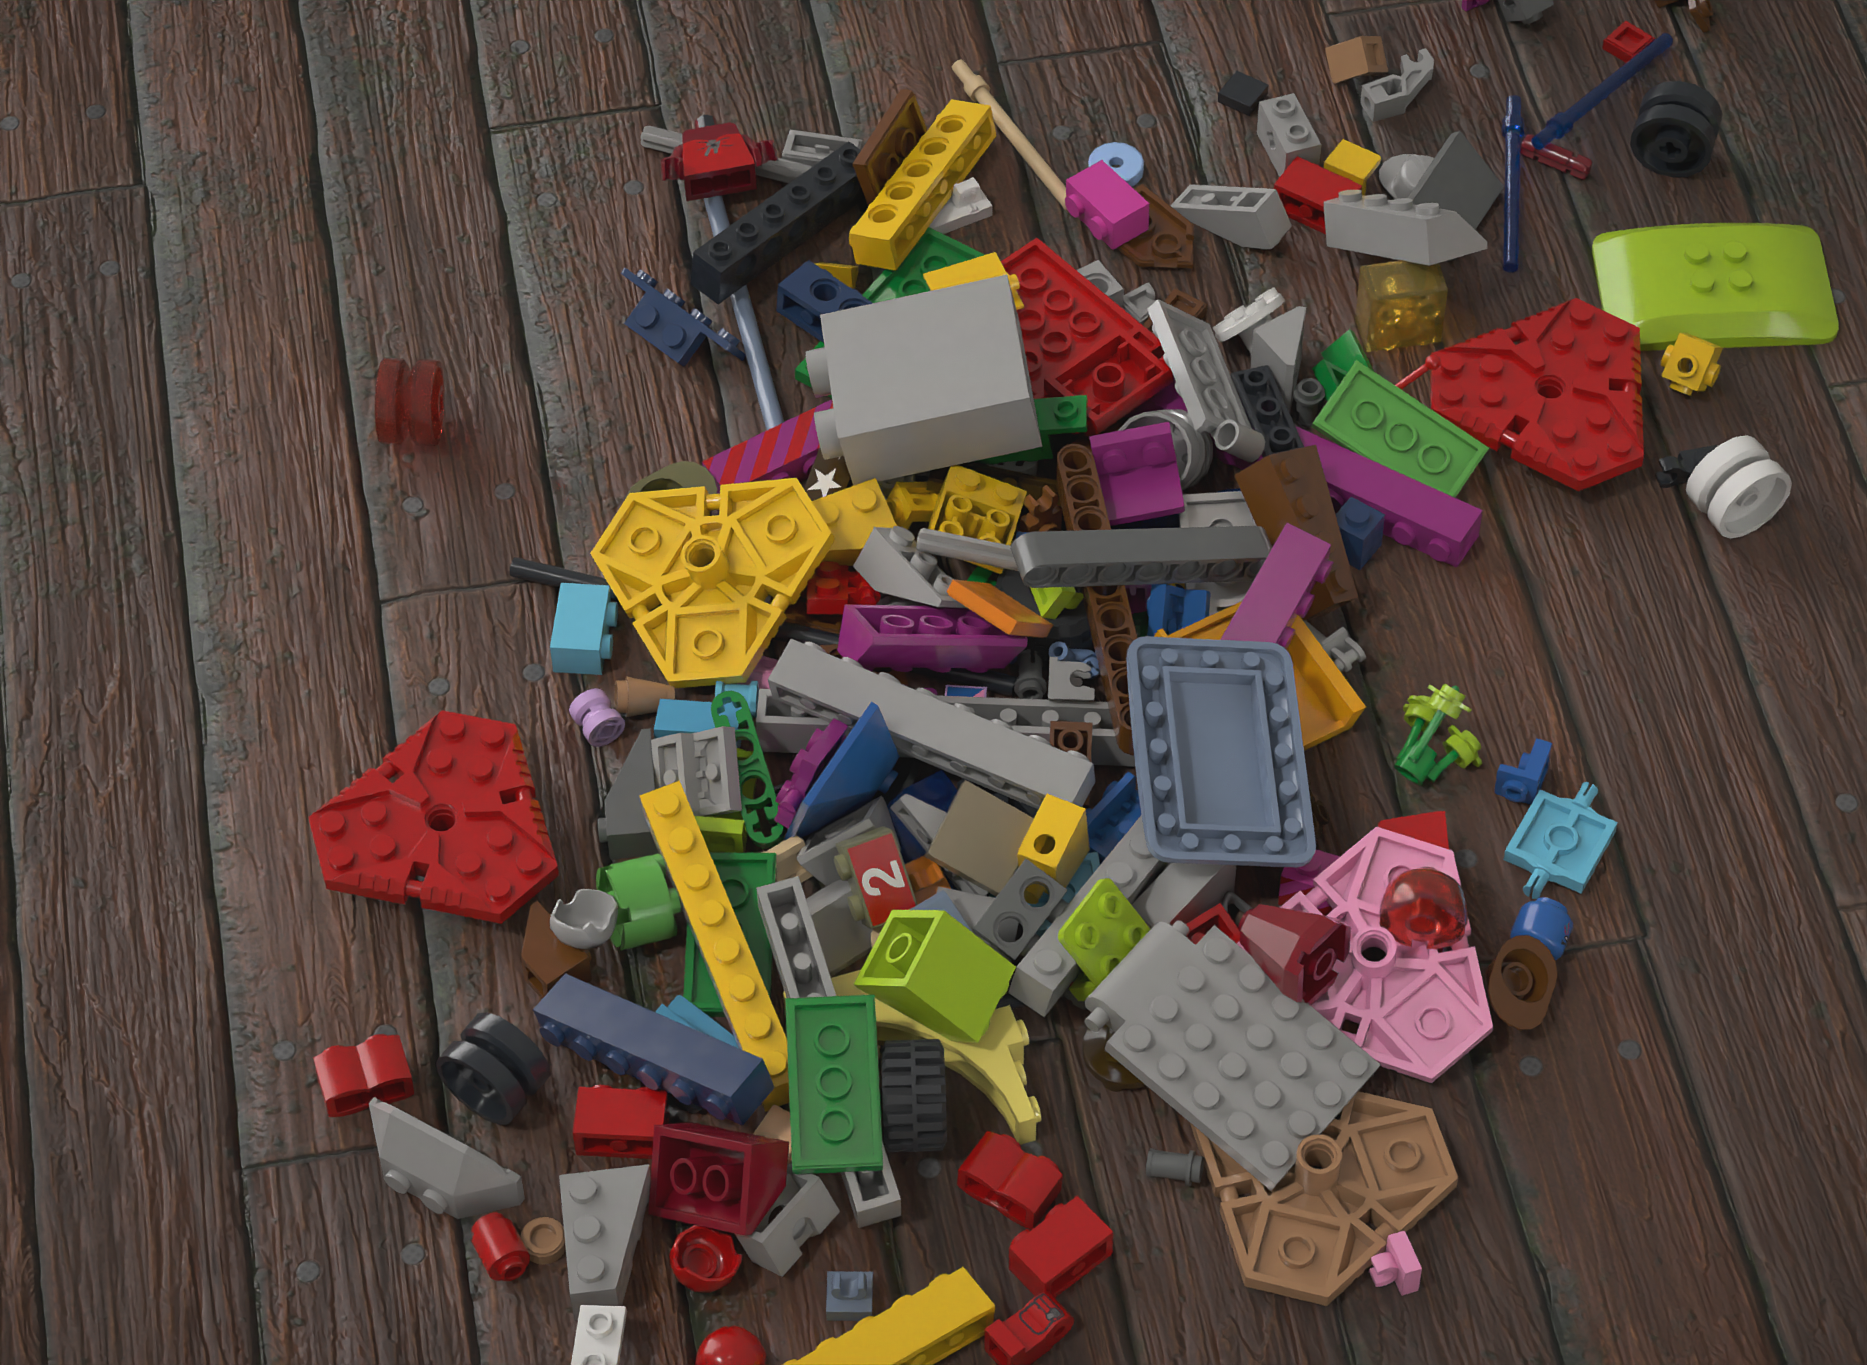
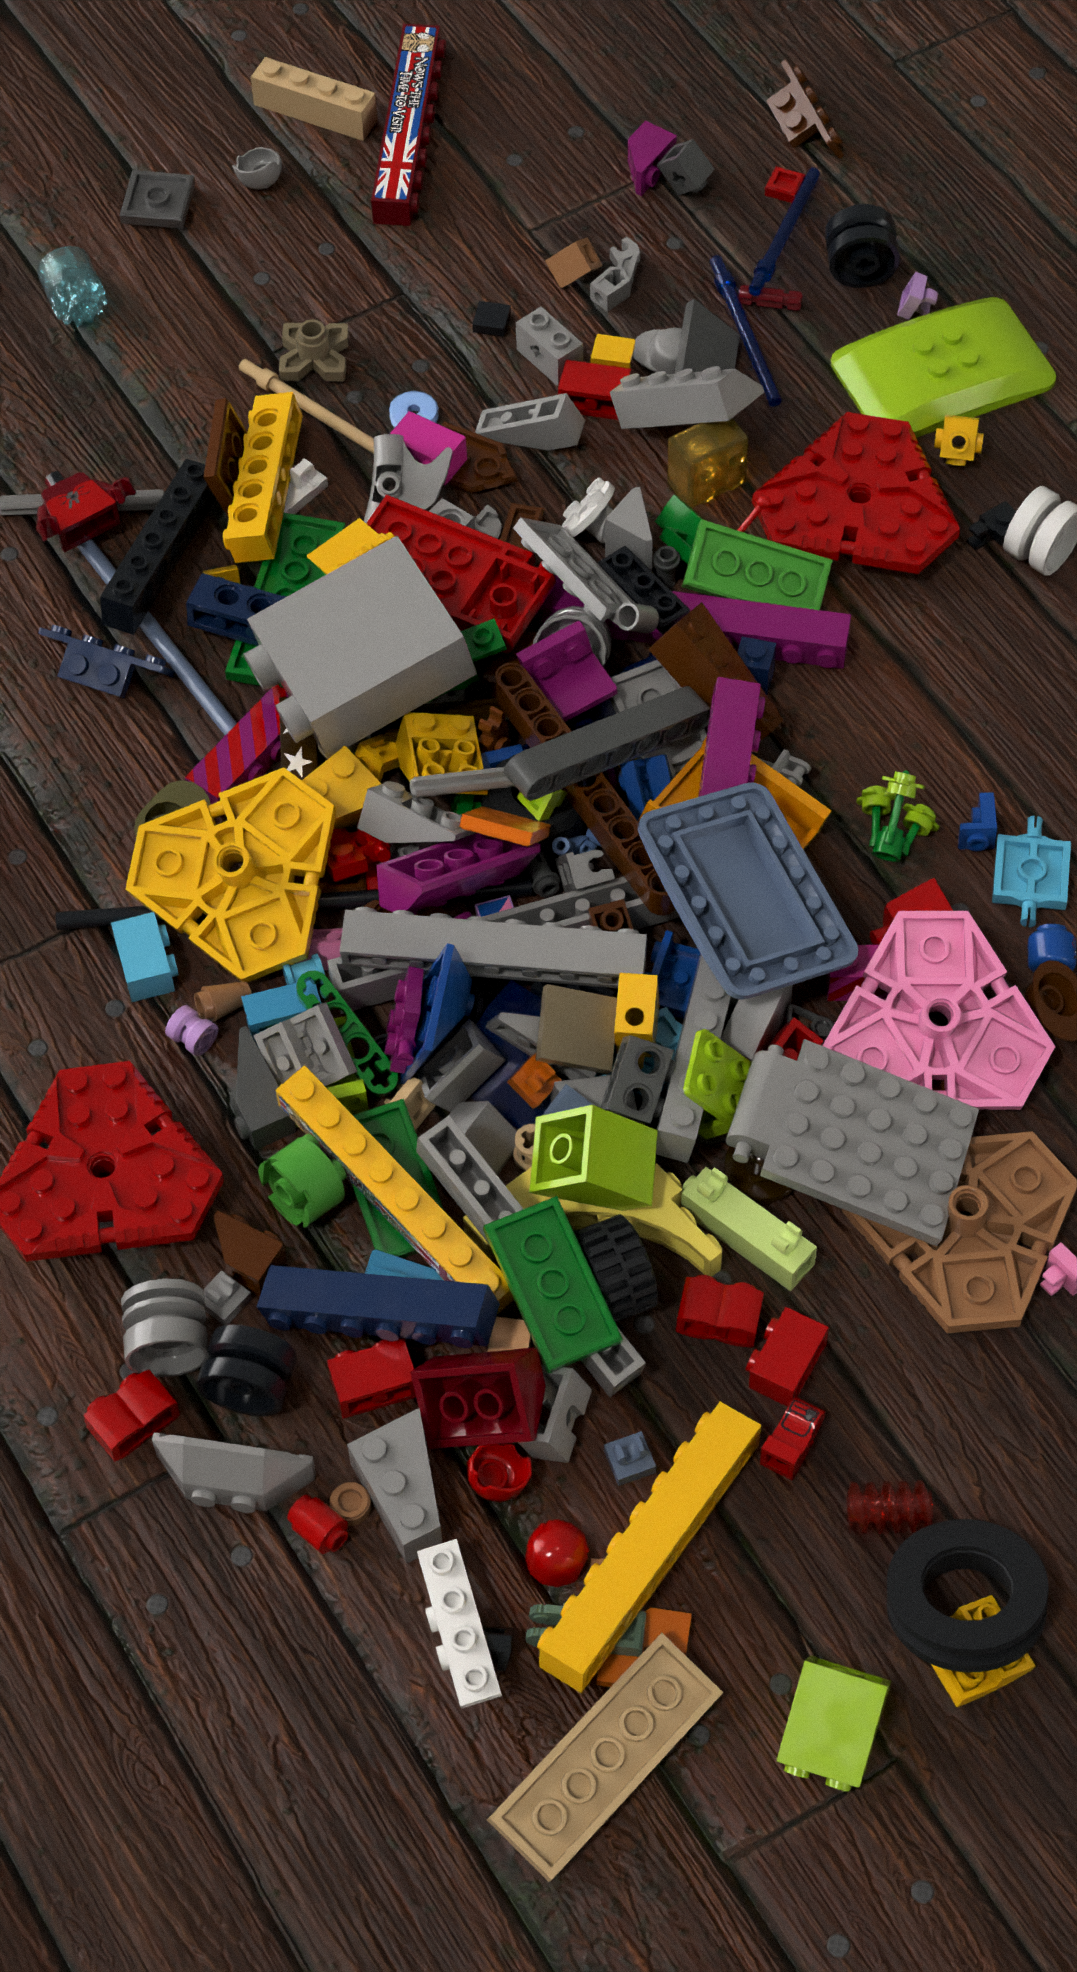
camera: 20 degrees left, 5 degrees up
(431, 997) = (164, 1327): none -> light grey wheel
(509, 993) = (225, 1298): none -> light grey tile
(586, 919) = (270, 1212): light grey hair -> none
(811, 156) = (160, 477): light grey tile -> none
(875, 876) = (502, 1092): brick -> none
(1038, 70) = (314, 348): none -> dark tan plant
(1066, 227) = (414, 481): none -> light grey pin
(1079, 1105) = (748, 1227): none -> yellowish green brick
(1175, 1165) = (847, 1252): dark grey pin -> none
(1295, 949) = (876, 1035): dark red cone -> none
(1424, 907) = (970, 965): clear red cylinder -> none
(1718, 202) = (916, 297): none -> lavender tile

